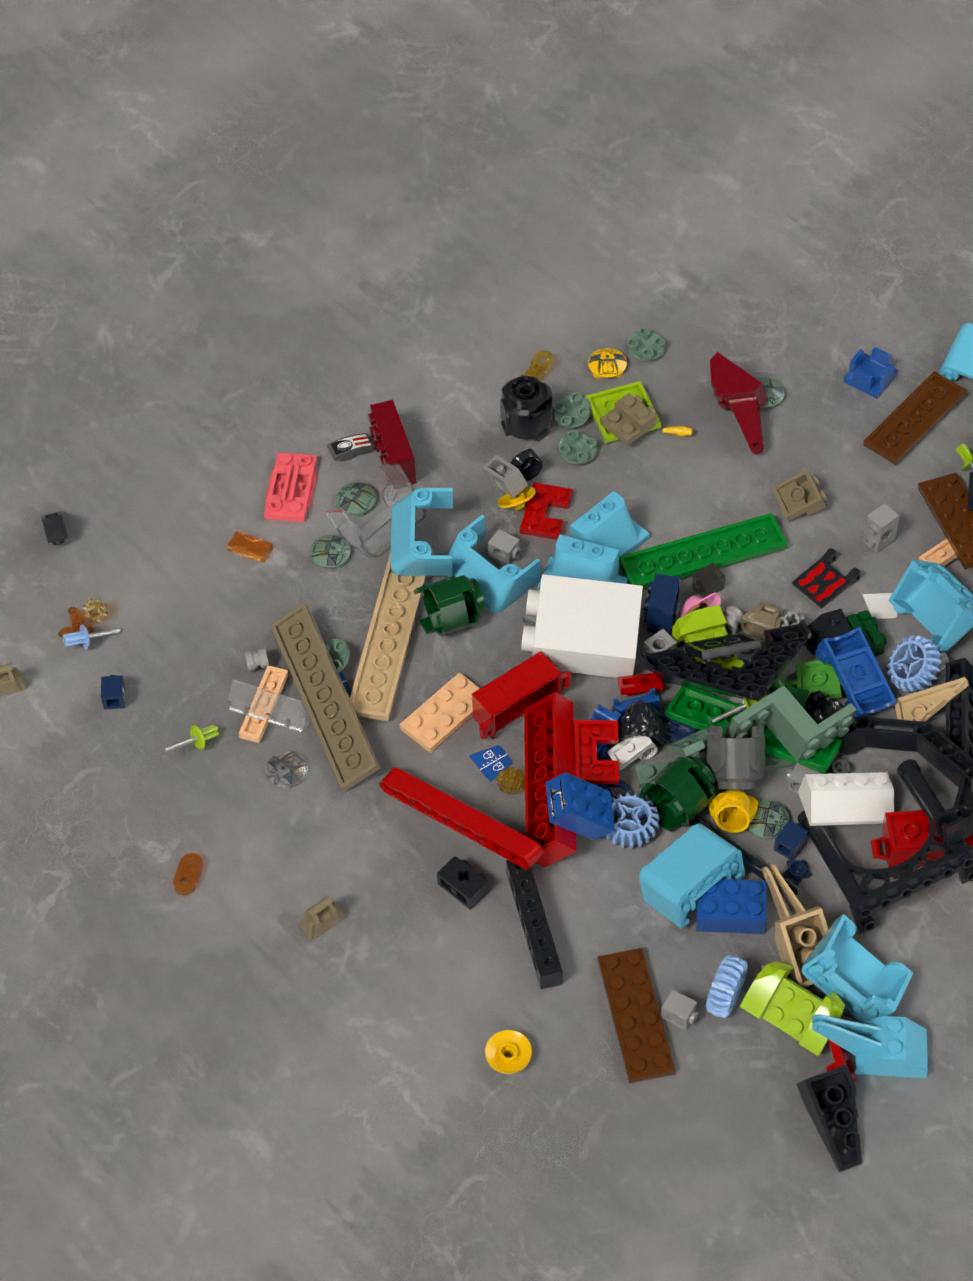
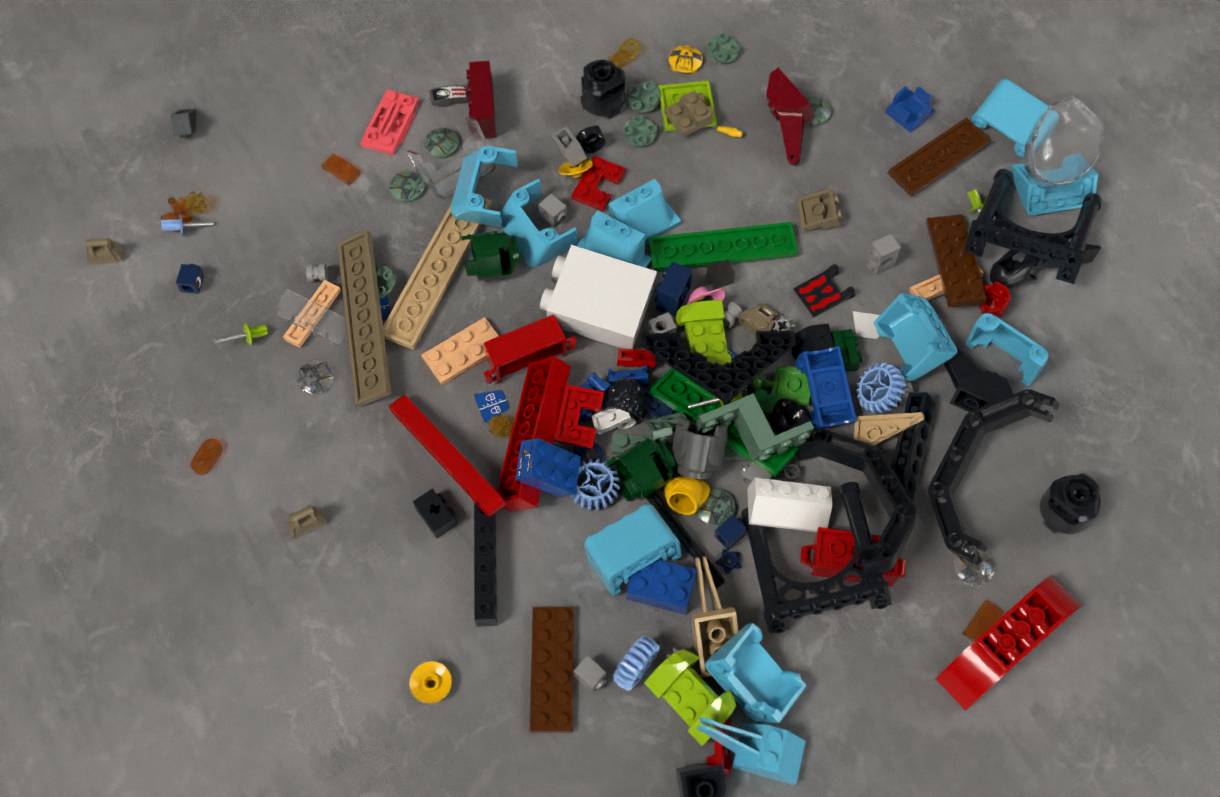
camera: 10 degrees right, 10 degrees up
(722, 646) = (713, 340): black plate -> none

